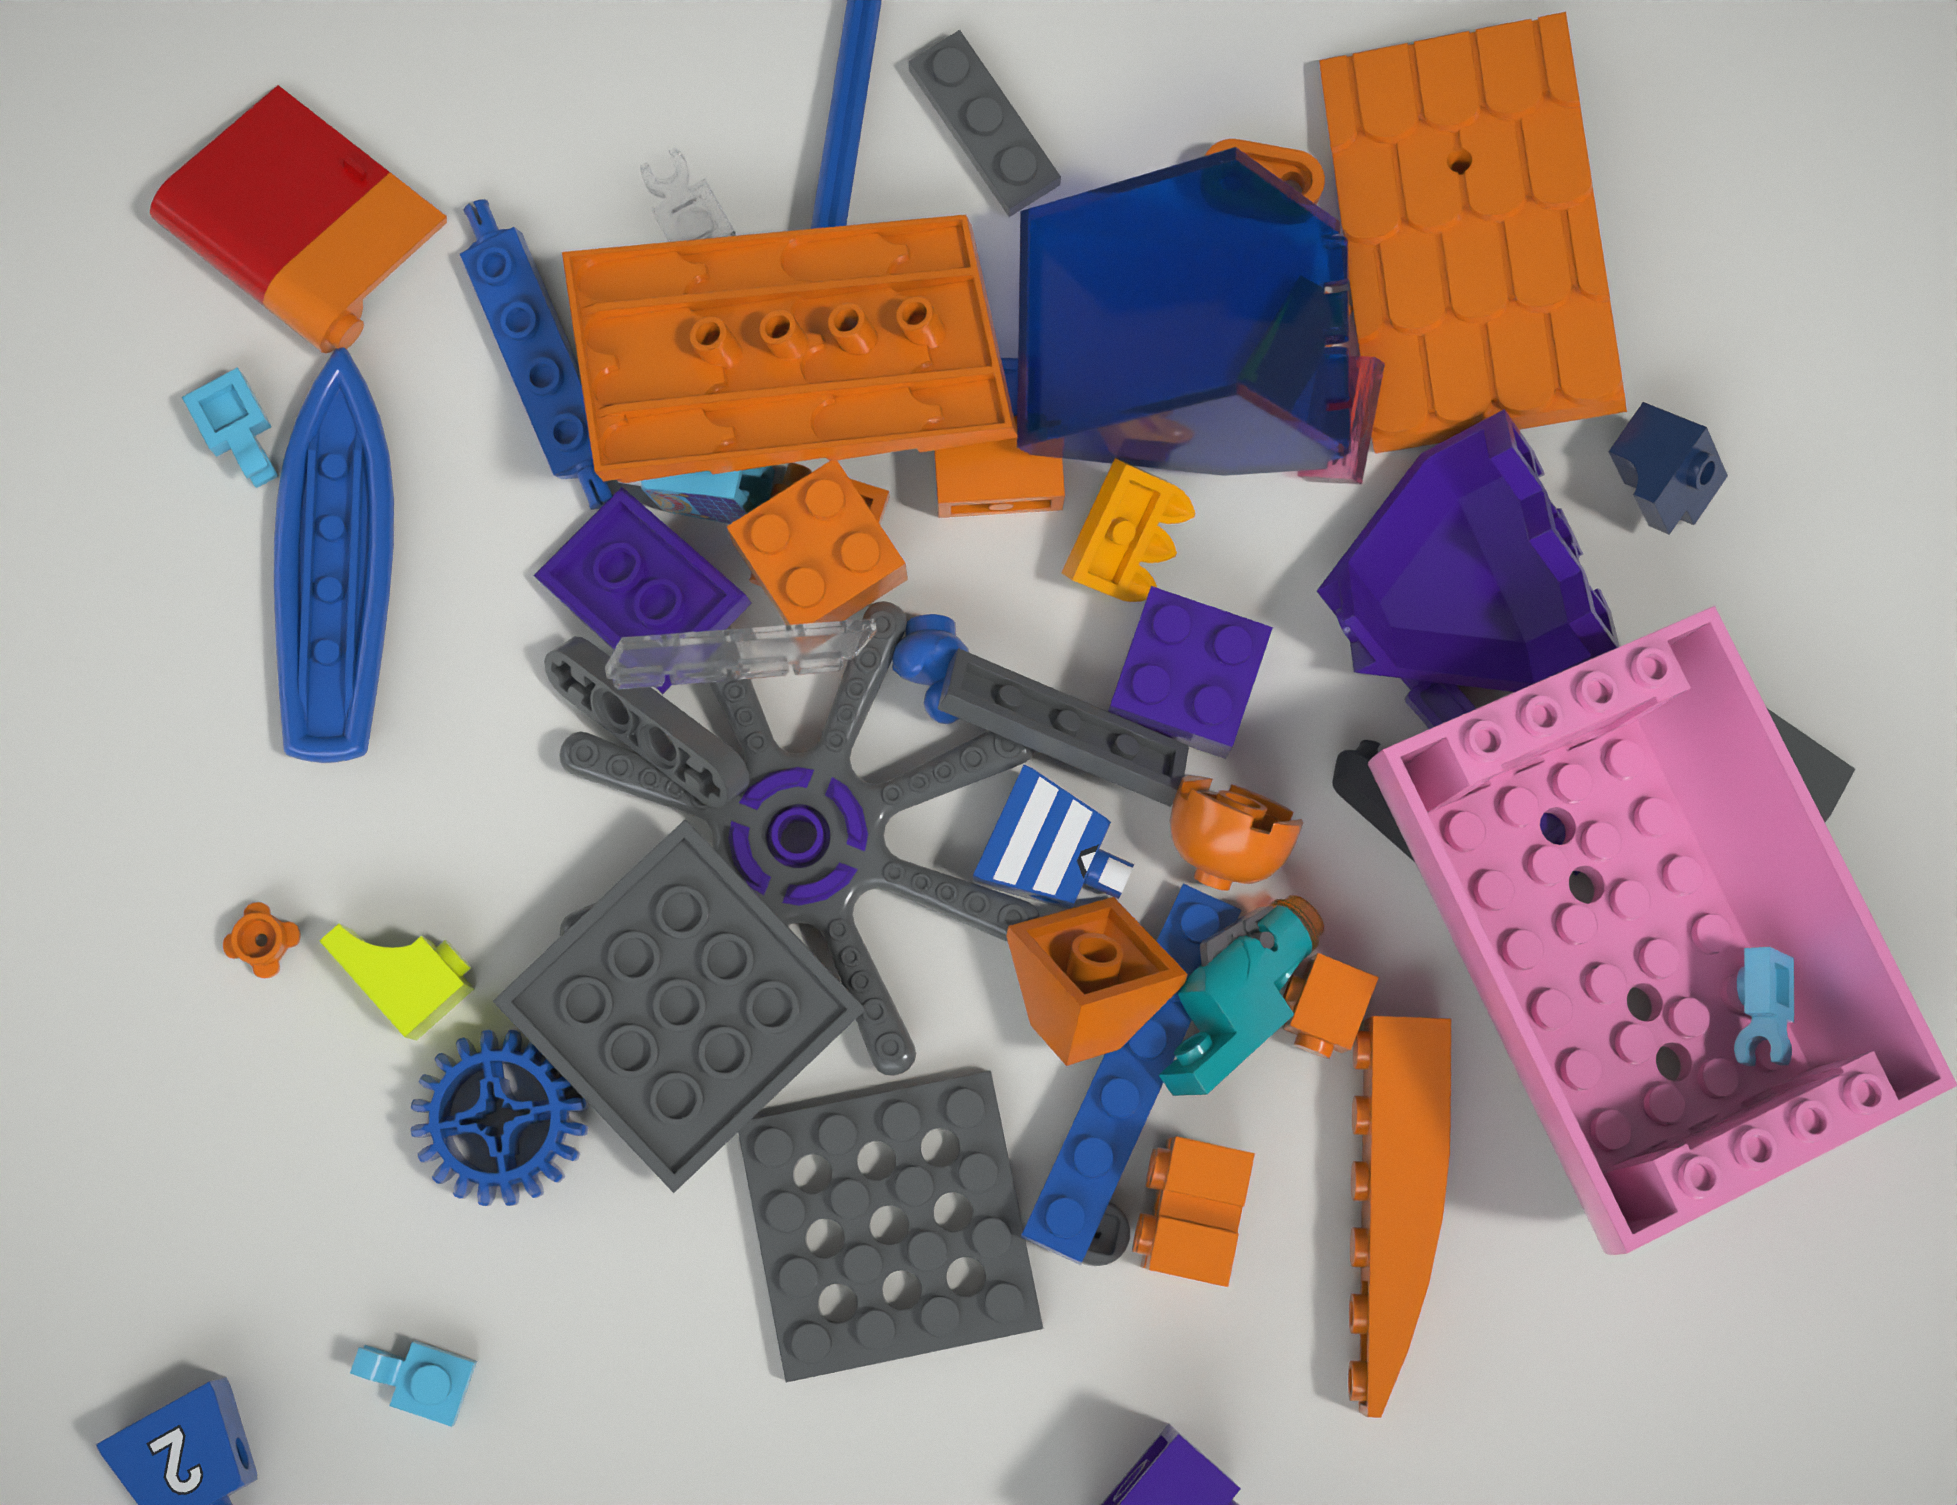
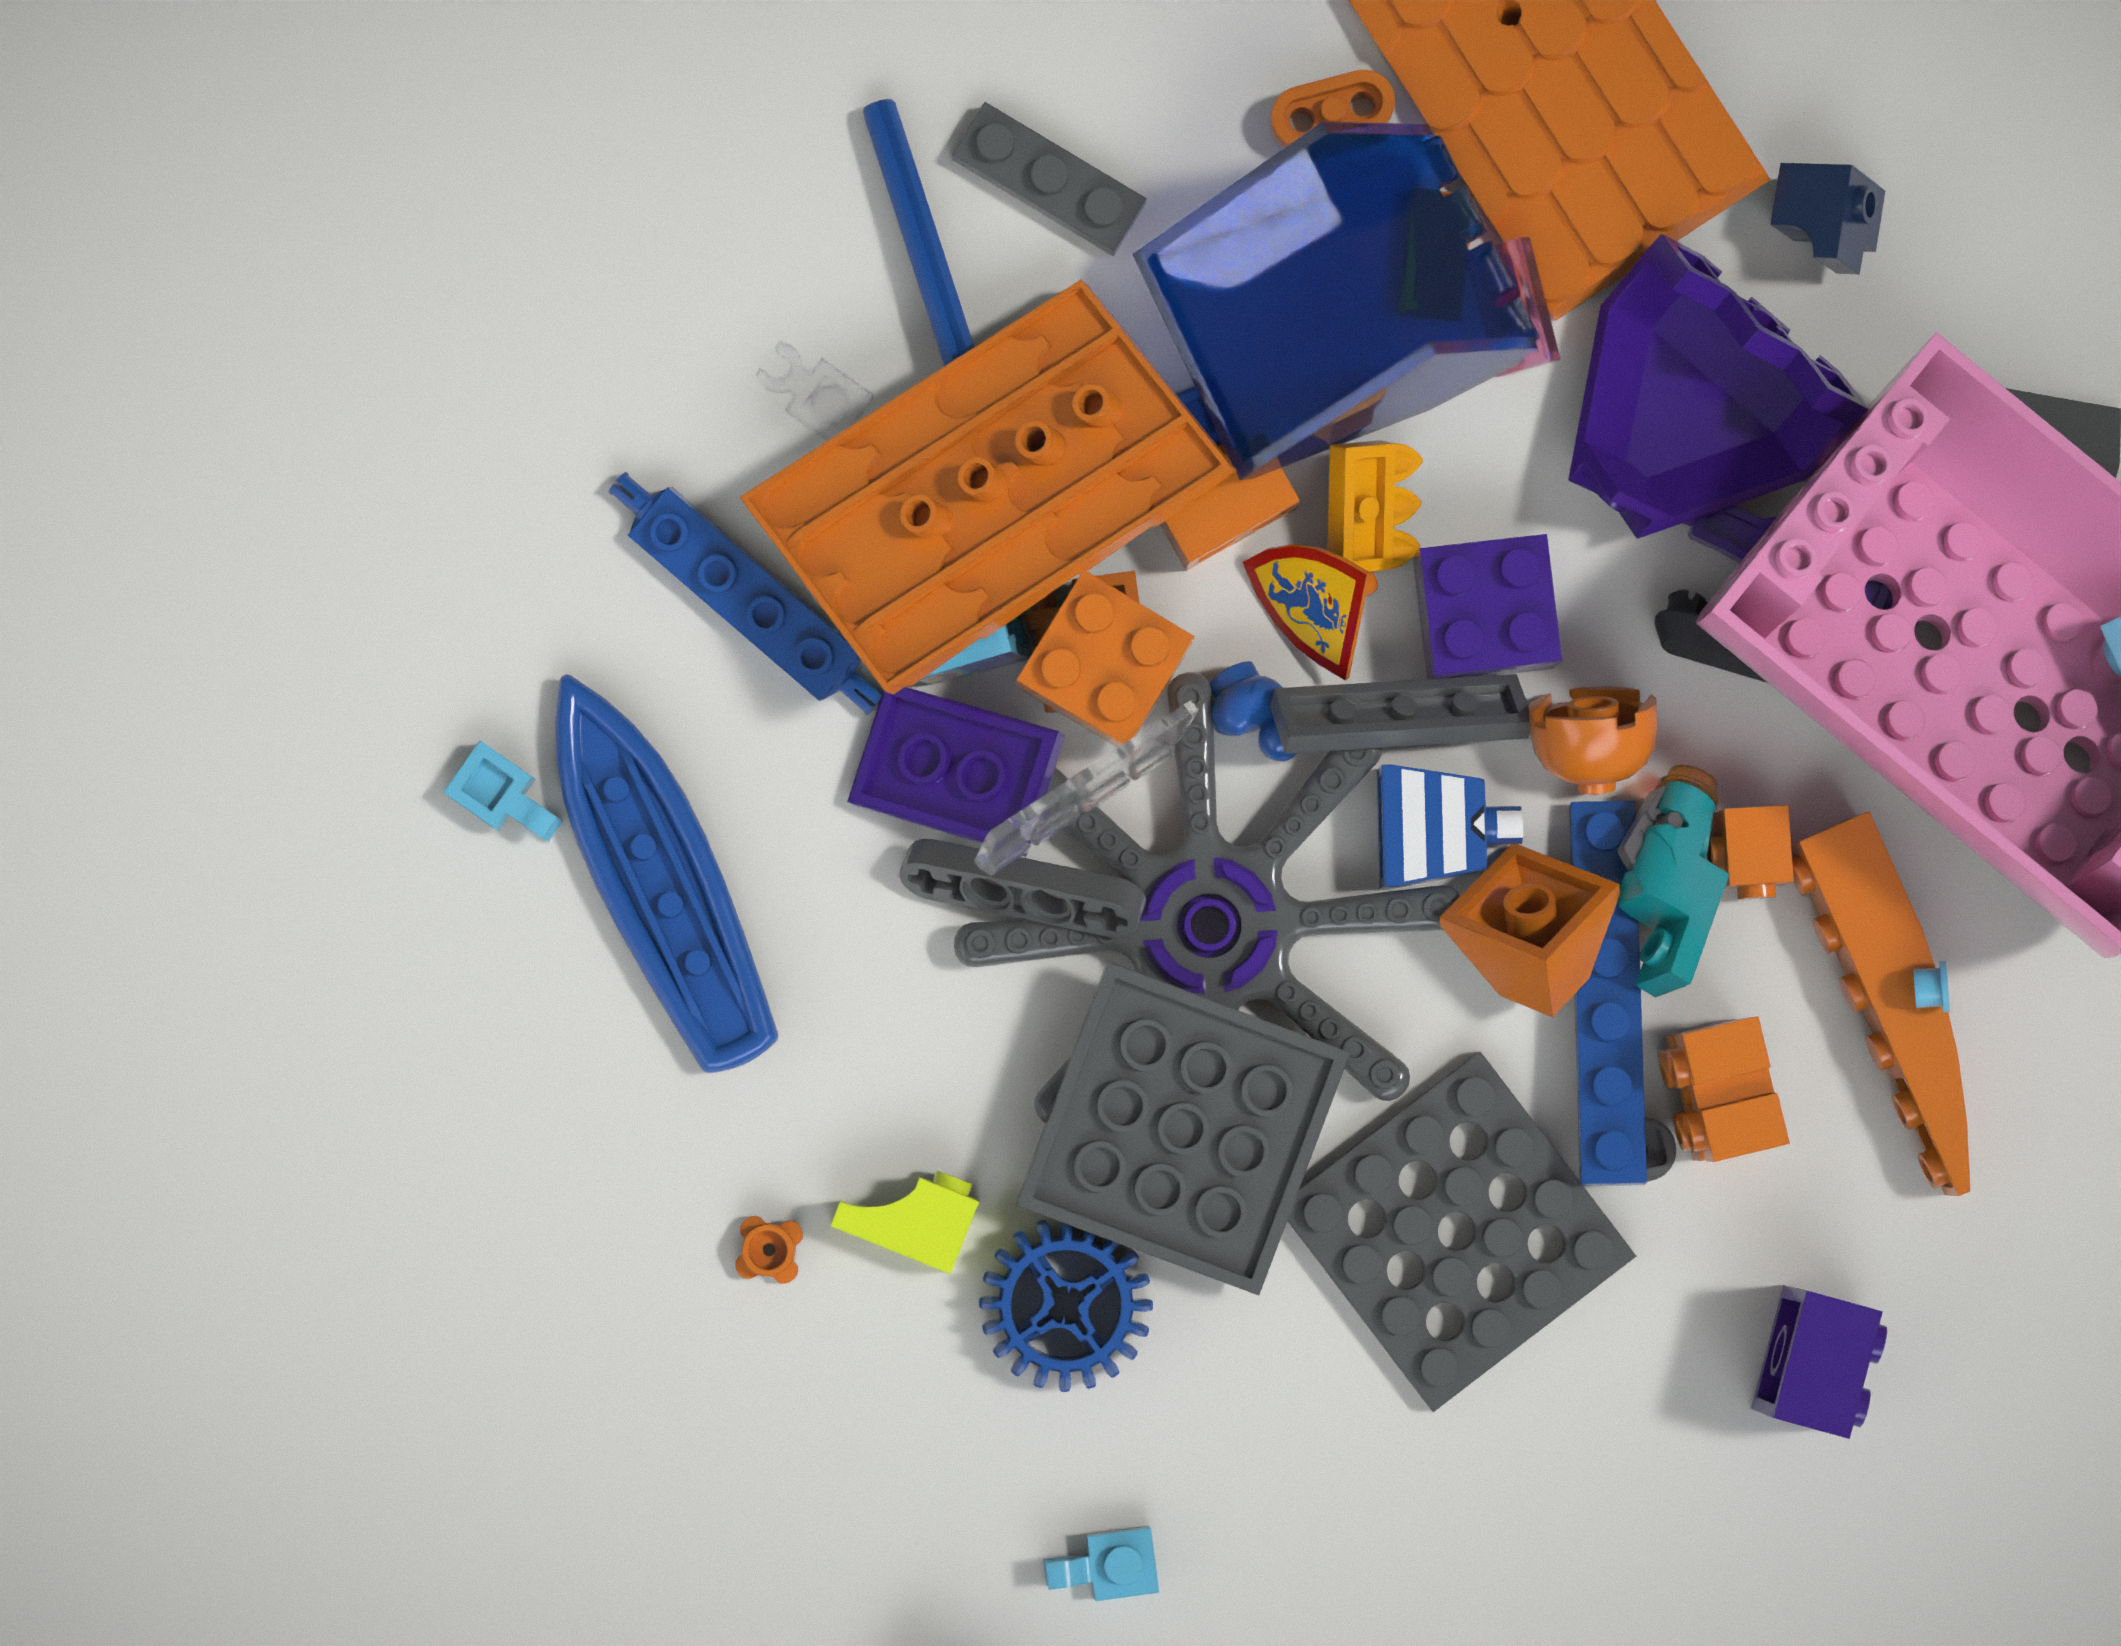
camera: 30 degrees left, 5 degrees up
(296, 217) = (459, 572): red door -> none
(1037, 591) = (1313, 600): none -> shield
(1432, 1208) = (1932, 987): none -> medium azure piece

